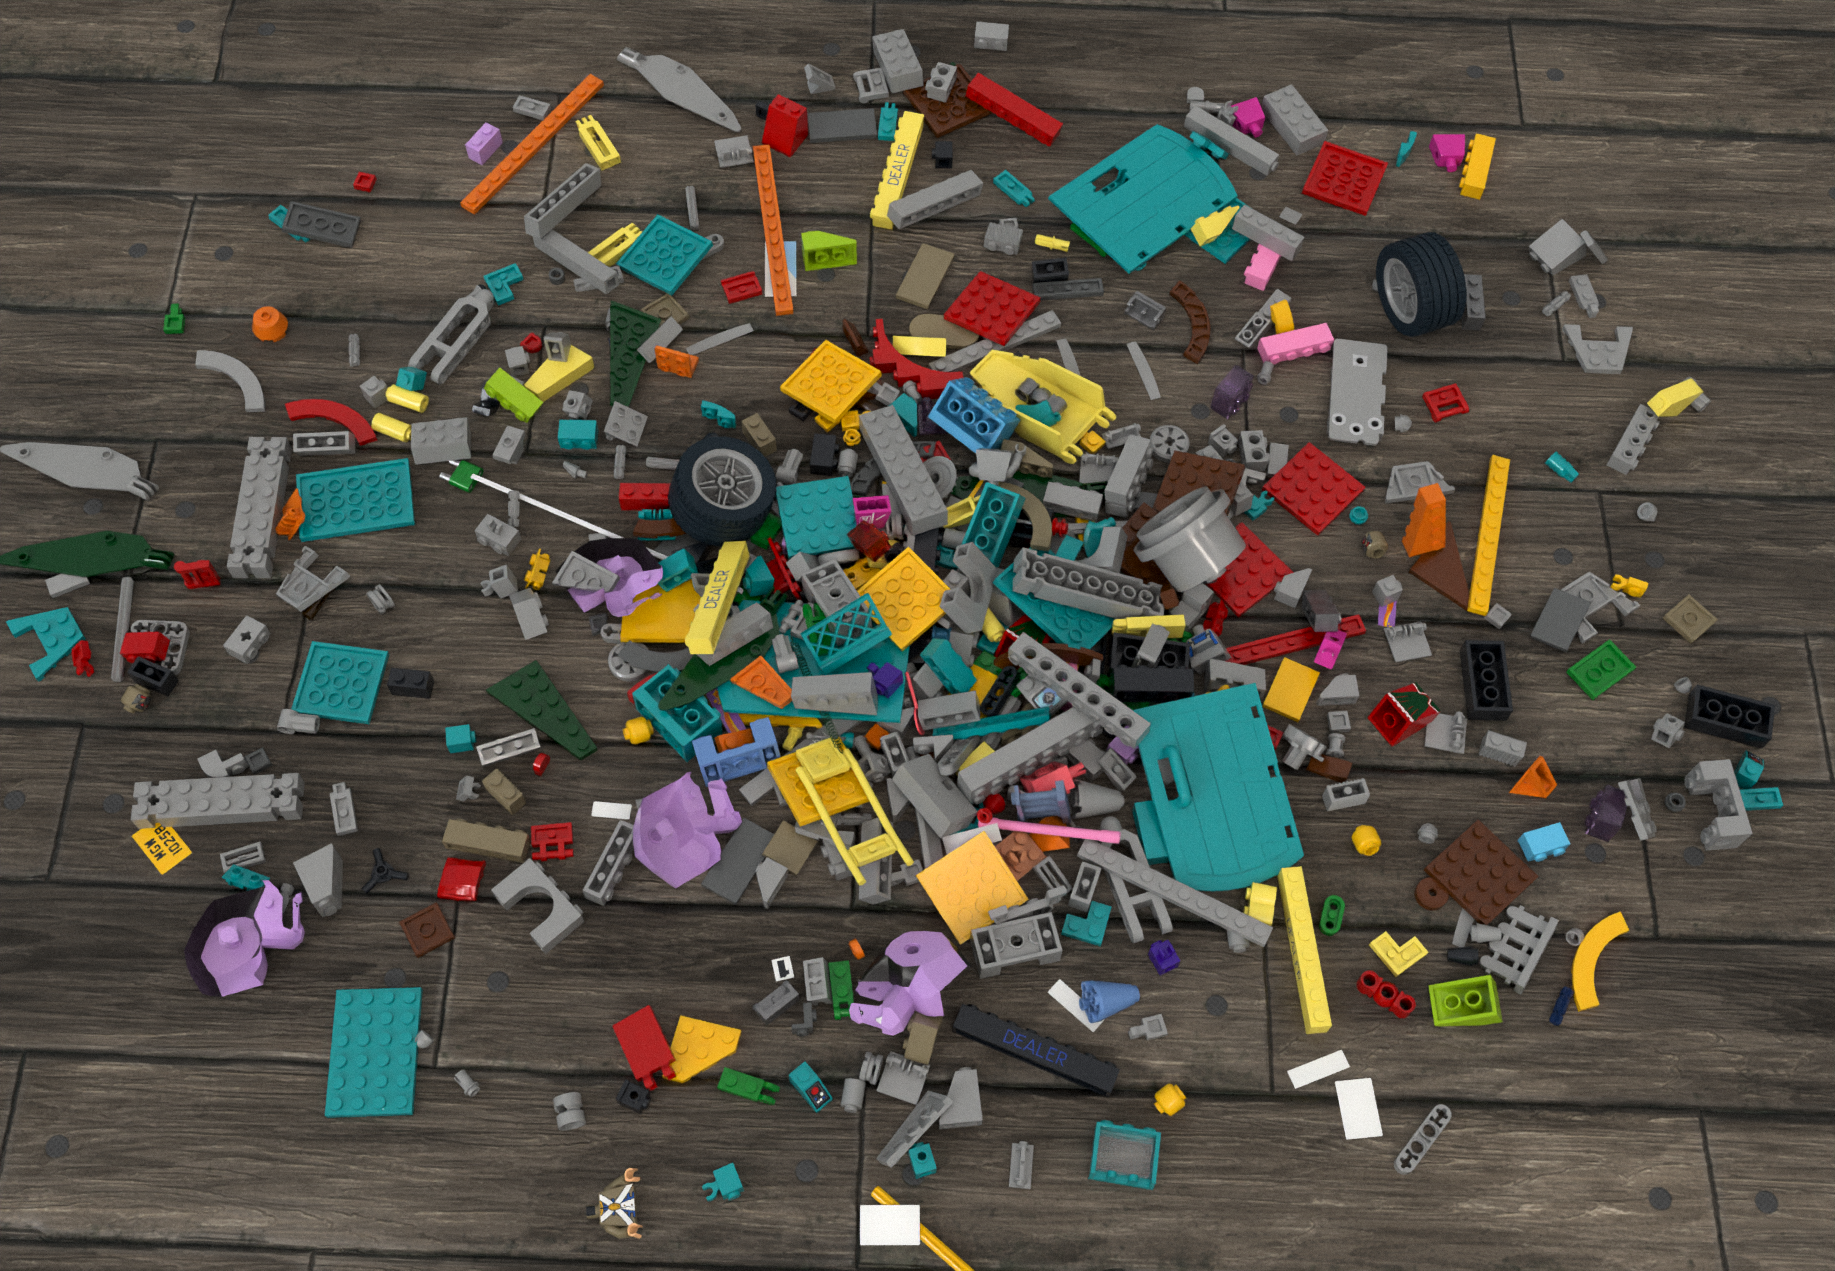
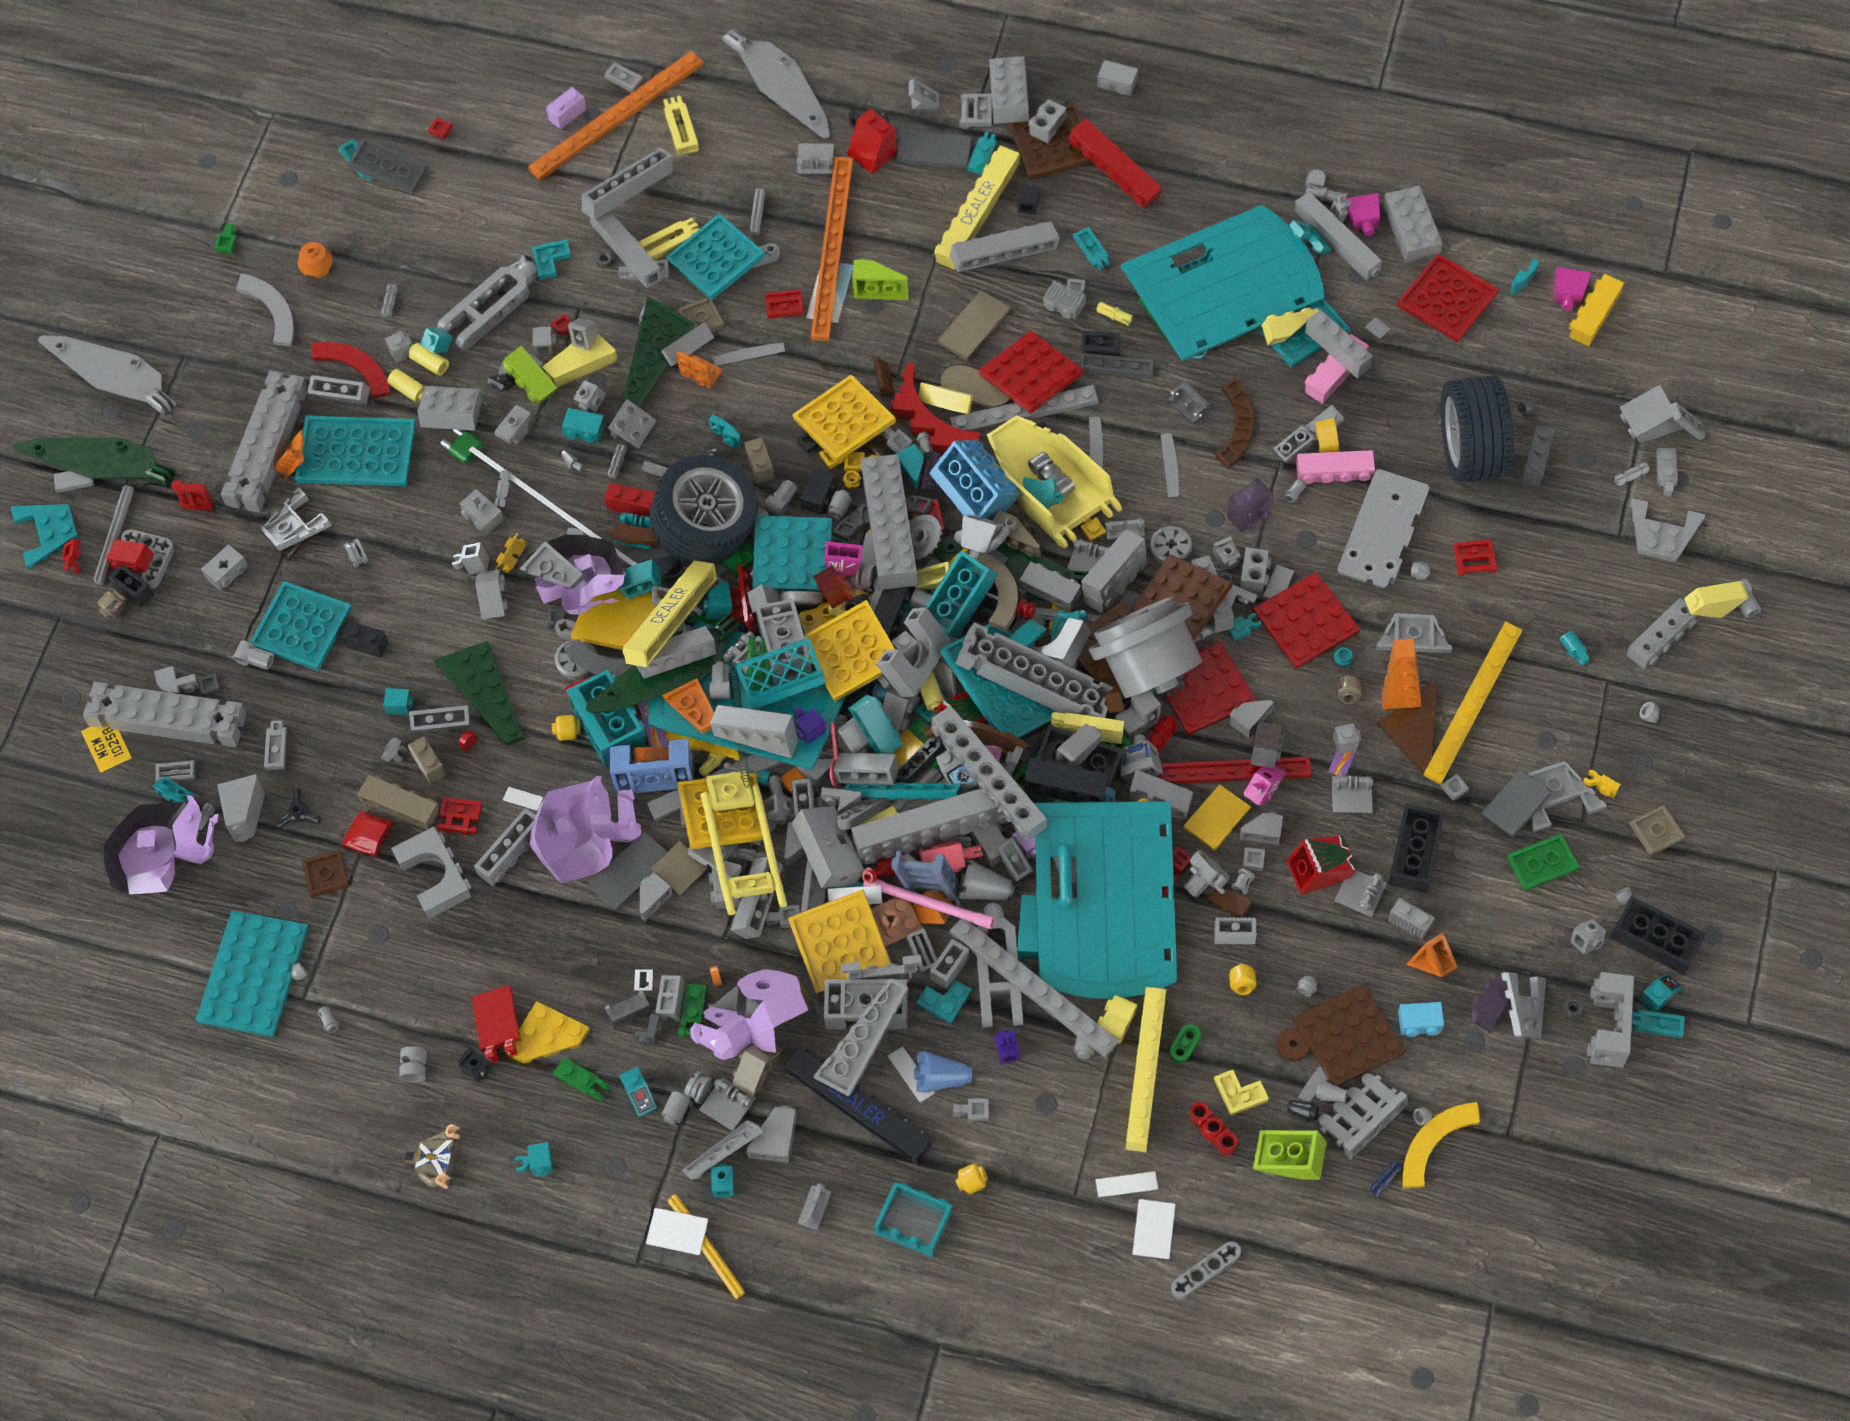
camera: 20 degrees right, 0 degrees up
(1020, 1001) = (853, 1054): none -> light grey wing

